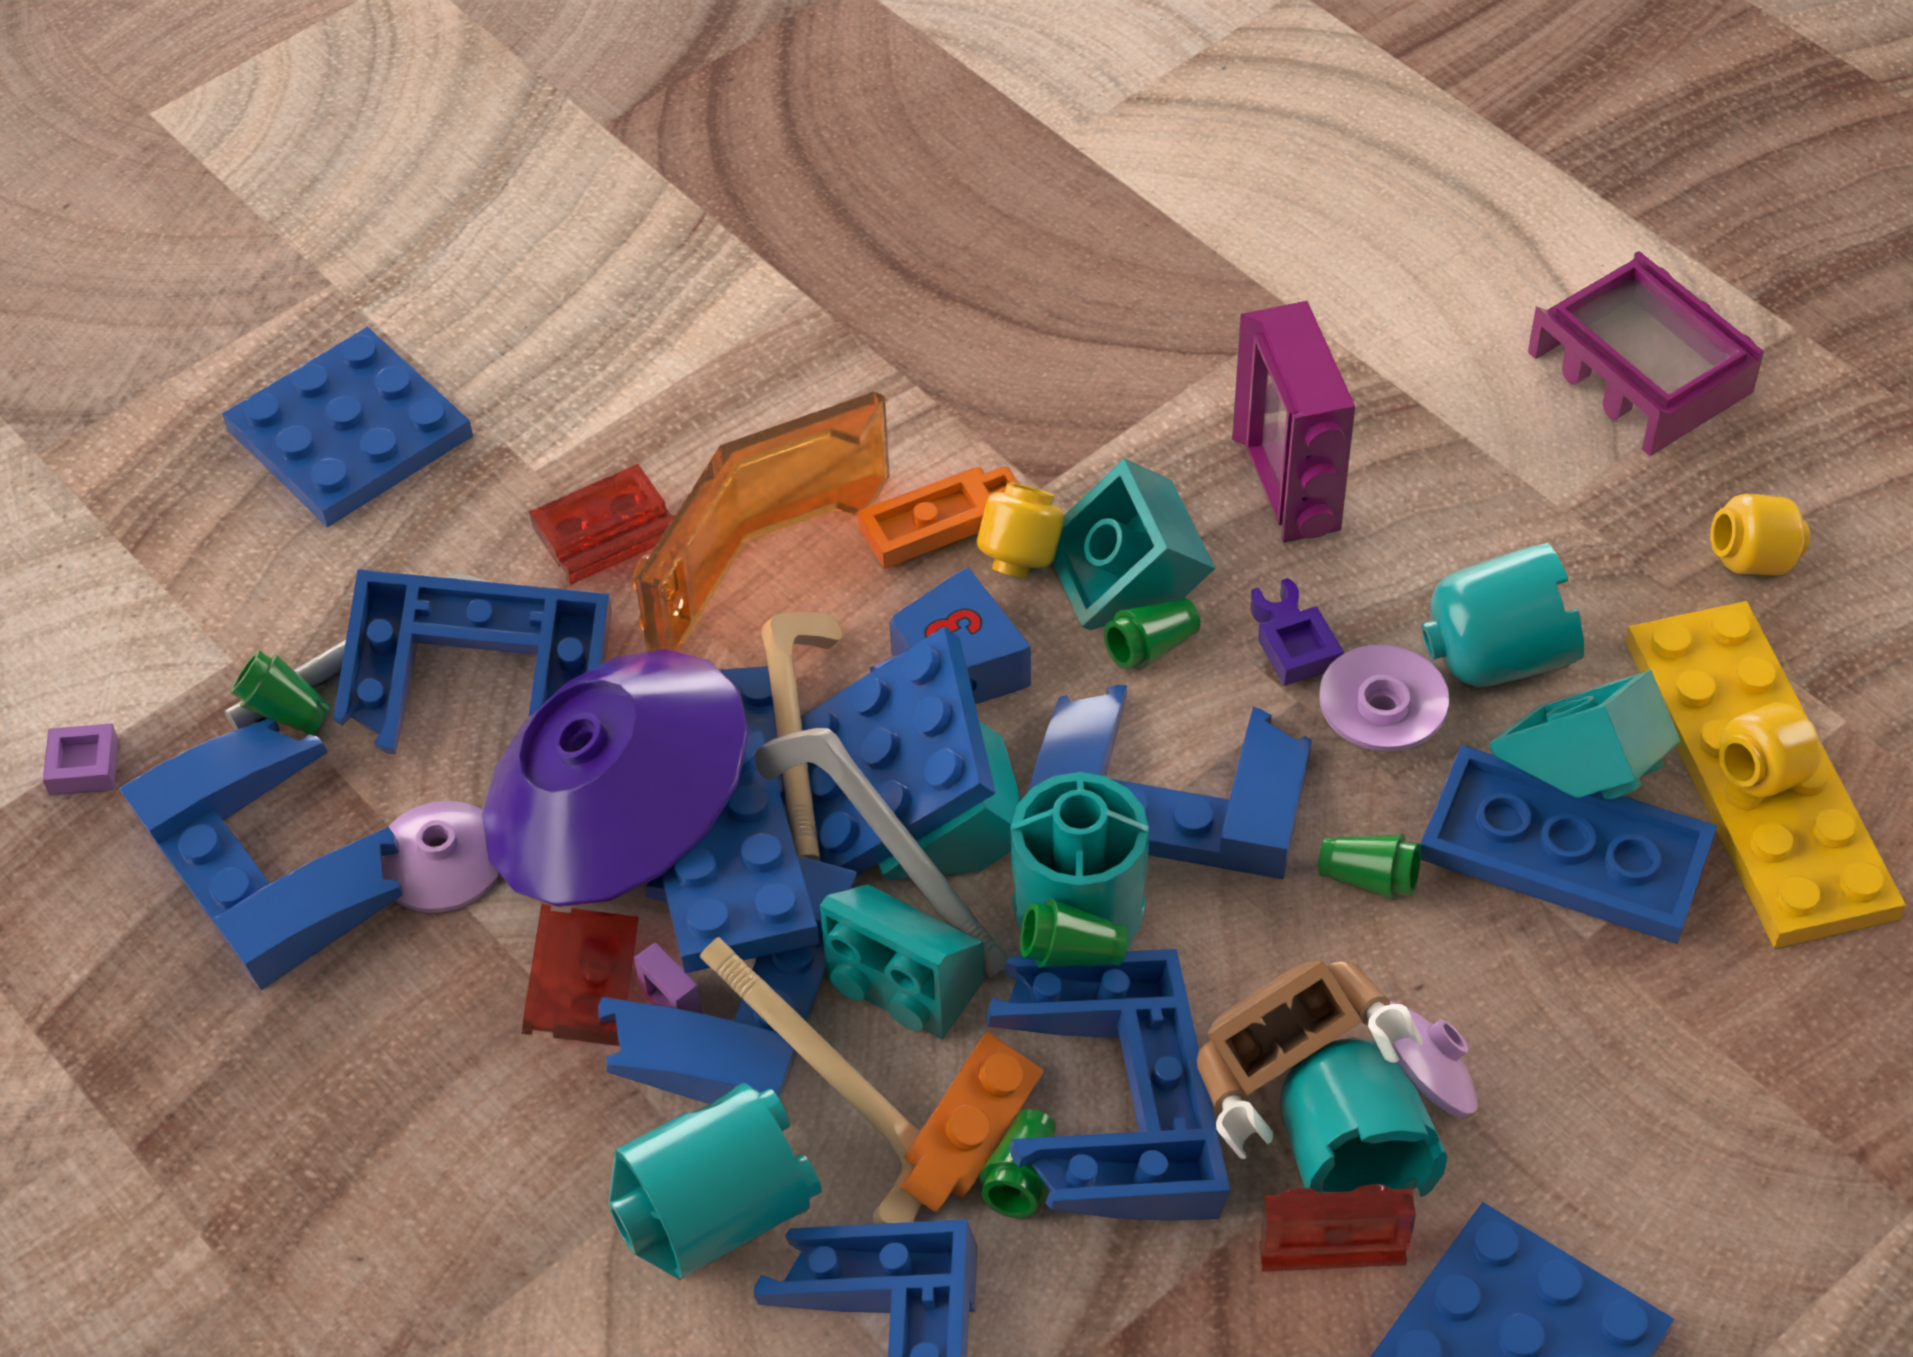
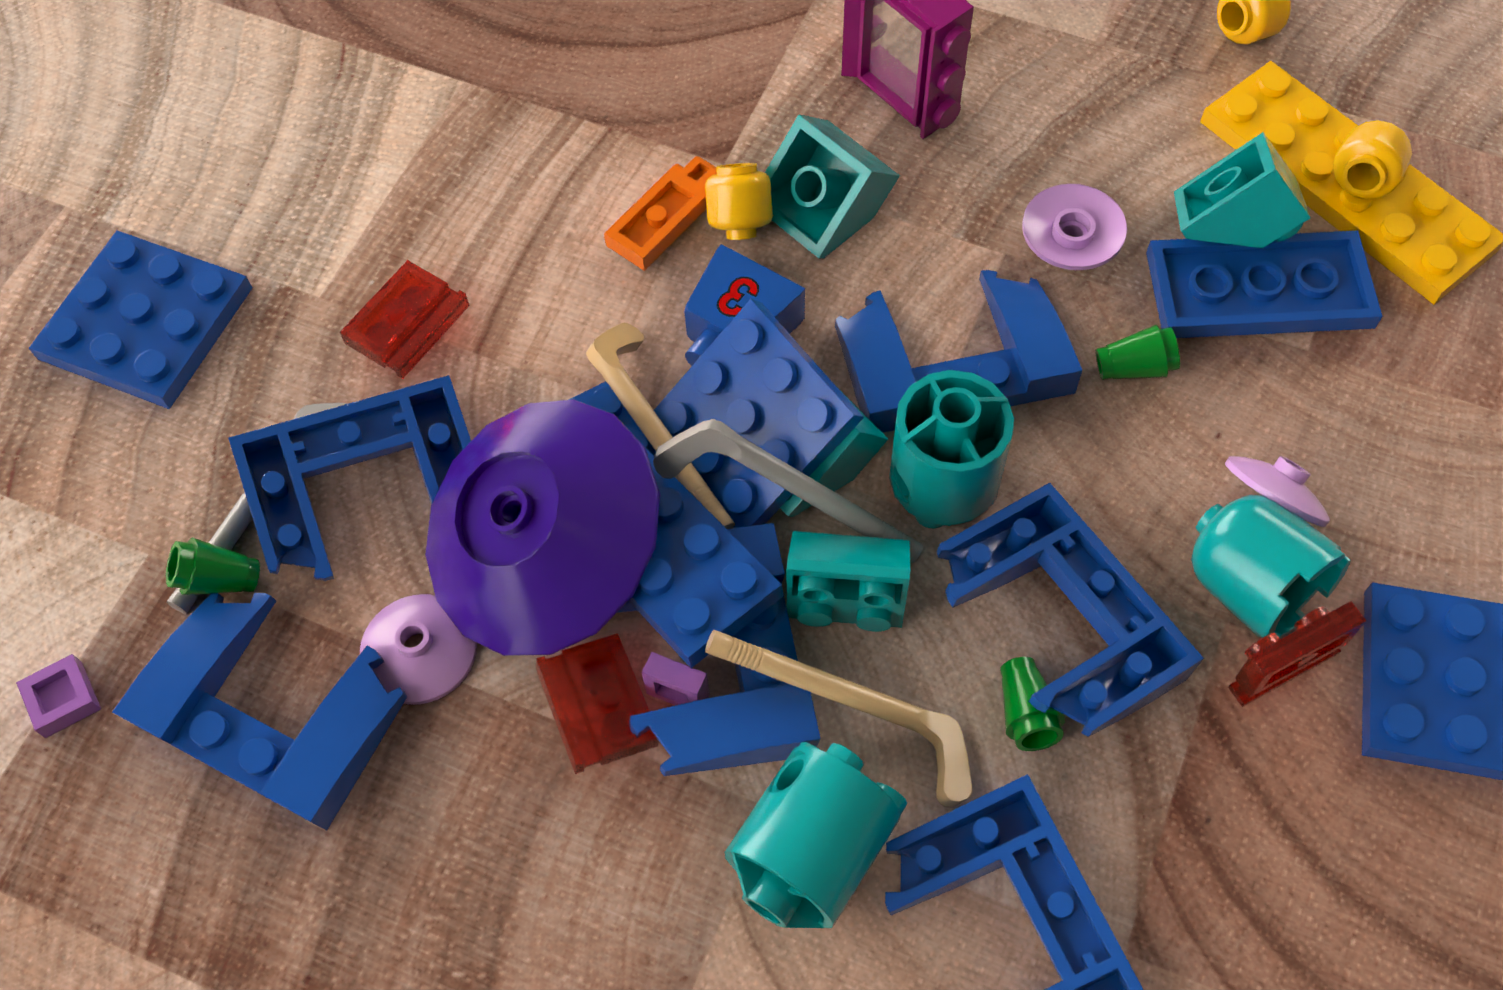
camera: 25 degrees left, 10 degrees up
(752, 490) = (518, 244): clear orange windscreen -> none
(969, 1122) = (970, 690): orange hinge -> none
(1070, 937) = (979, 510): green cone -> none
(1148, 632) = (875, 243): green cone -> none
(1284, 1026) = (1180, 511): medium nougat torso -> none
(1293, 640) = (981, 208): dark purple plate -> none
(1504, 619) = (1133, 132): teal cylinder -> none

